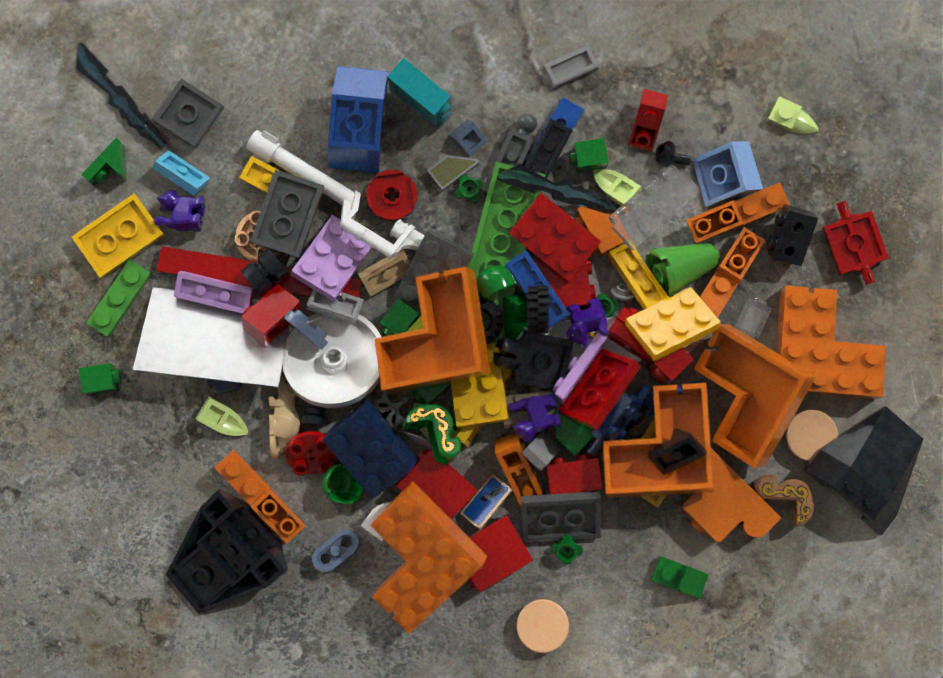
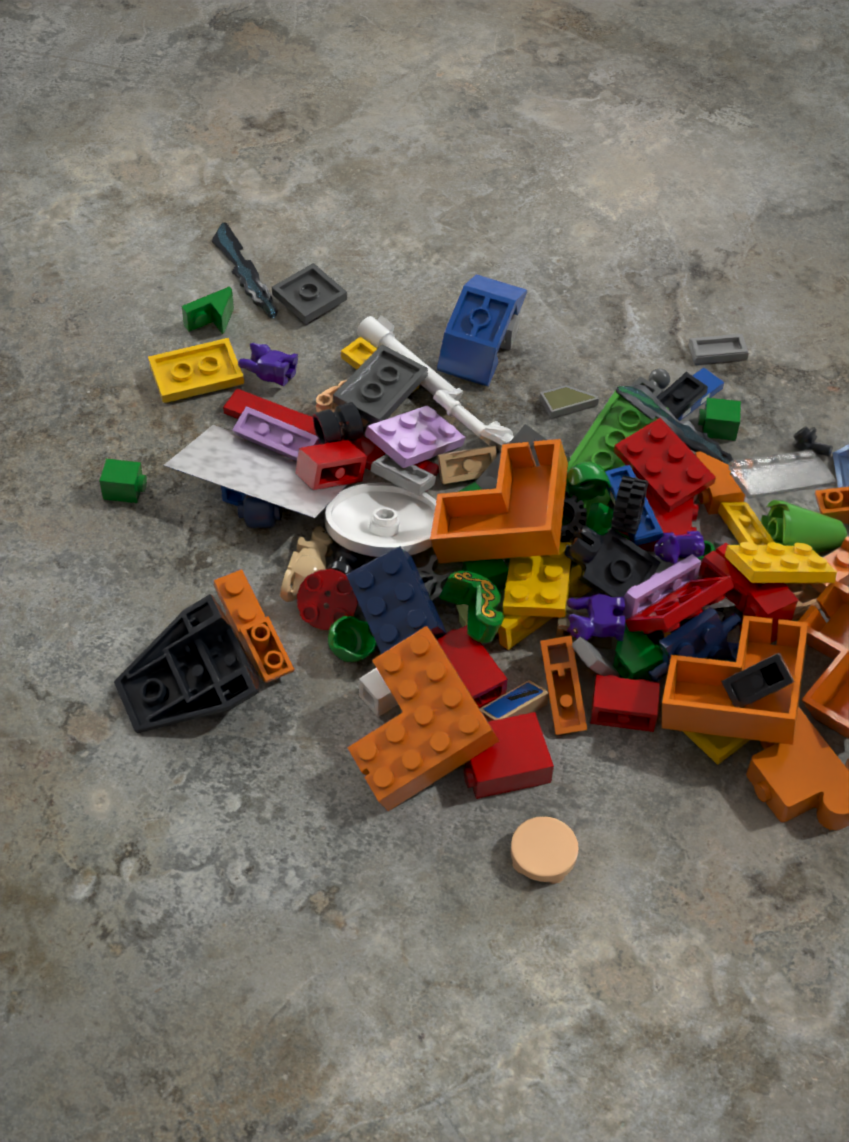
camera: 15 degrees right, 30 degrees down
(119, 298) = (173, 423): bright green plate -> none
(181, 173) = (277, 331): medium azure plate -> none
(221, 418) = (238, 548): yellowish green plate -> none
(299, 321) = (360, 474): sand blue plate -> none
(336, 550) = (318, 705): sand blue plate -> none
(380, 187) = (510, 408): red plate -> none
(418, 440) = (453, 615): sticker -> none
(420, 93) = (553, 322): teal brick -> none
(465, 182) = (580, 418): green plate -> none
(468, 137) = (593, 379): sand blue slope -> none
(561, 514) = (599, 733): dark grey plate -> none
(567, 556) = (599, 767): green plate -> none
(616, 185) = (742, 449): yellowish green plate -> none
(648, 120) = (790, 405): red slope -> none
(679, 577) = (731, 845): green slope -> none

